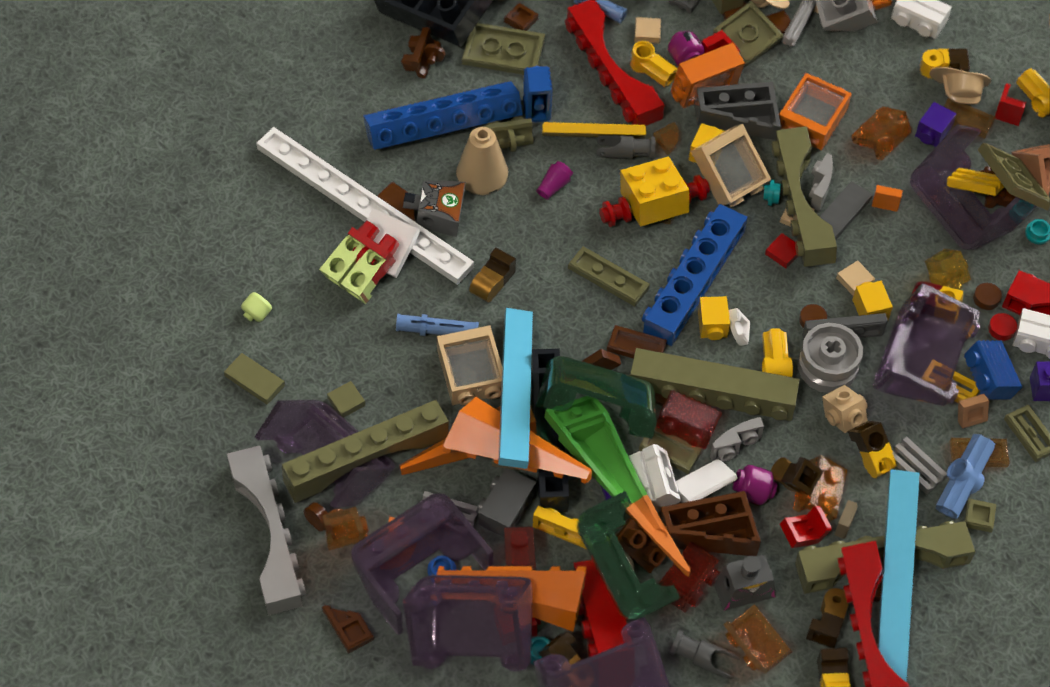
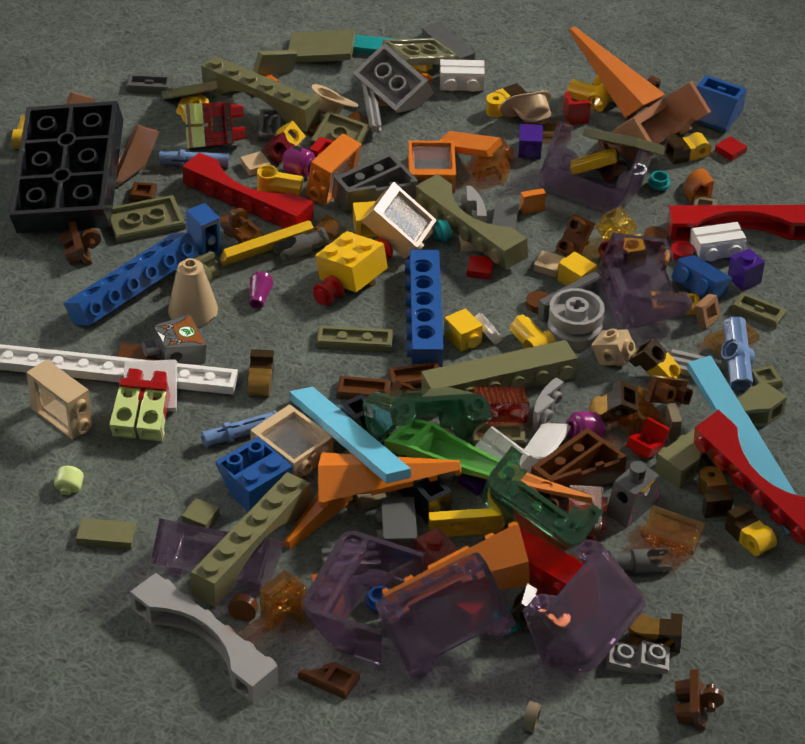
camera: 30 degrees left, 15 degrees down
(293, 221) = (59, 399): none -> tan window
(413, 380) = (252, 471): none -> blue slope
(578, 101) = (239, 226): none -> reddish brown hips
(578, 335) = (353, 386): none -> reddish brown tile
(686, 19) = (283, 141): none -> dark red leg
(859, 484) = (668, 390): none -> reddish brown hips
(868, 102) = (472, 143): none -> orange tile
(896, 262) = (575, 235): none -> reddish brown hips

